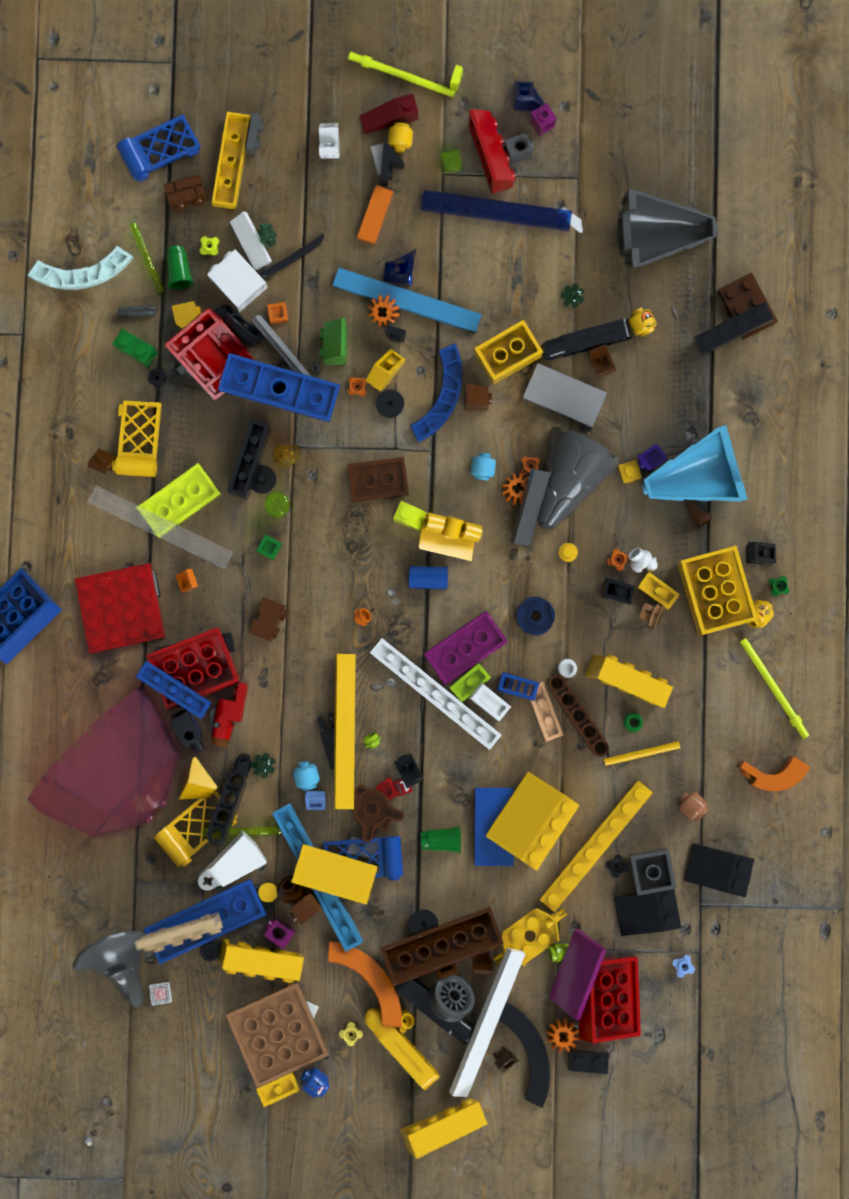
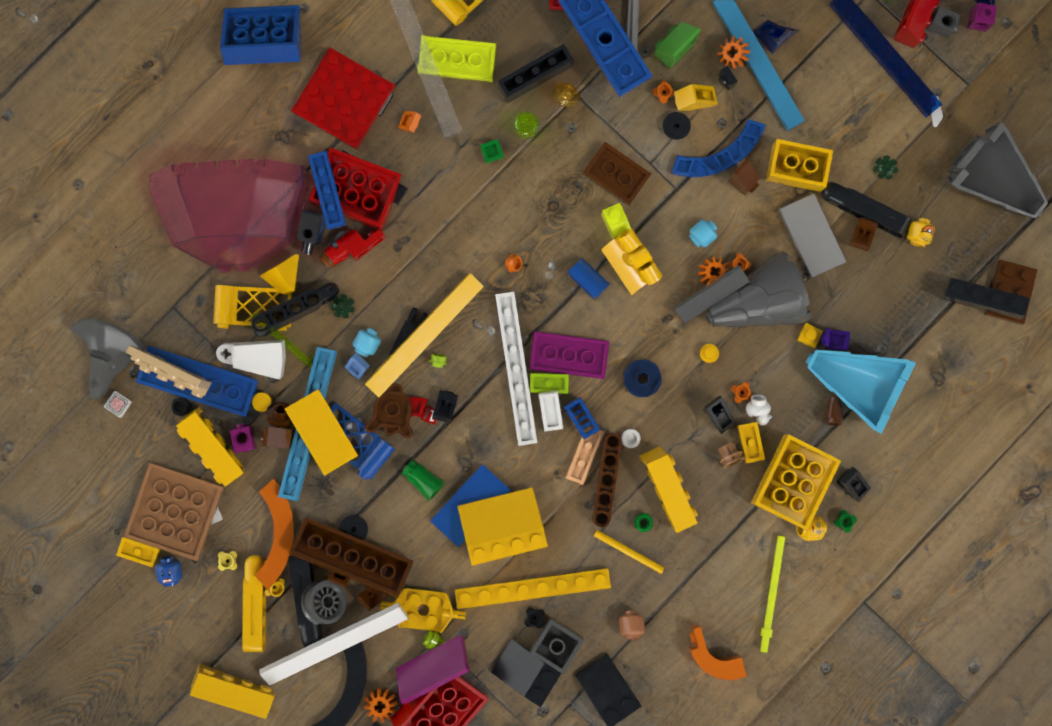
camera: 40 degrees right, 0 degrees up
(264, 480) = (533, 100): black piece -> none
(270, 616) = (443, 203): reddish brown brick -> none
(506, 1061) = (322, 686): dark brown tile -> none

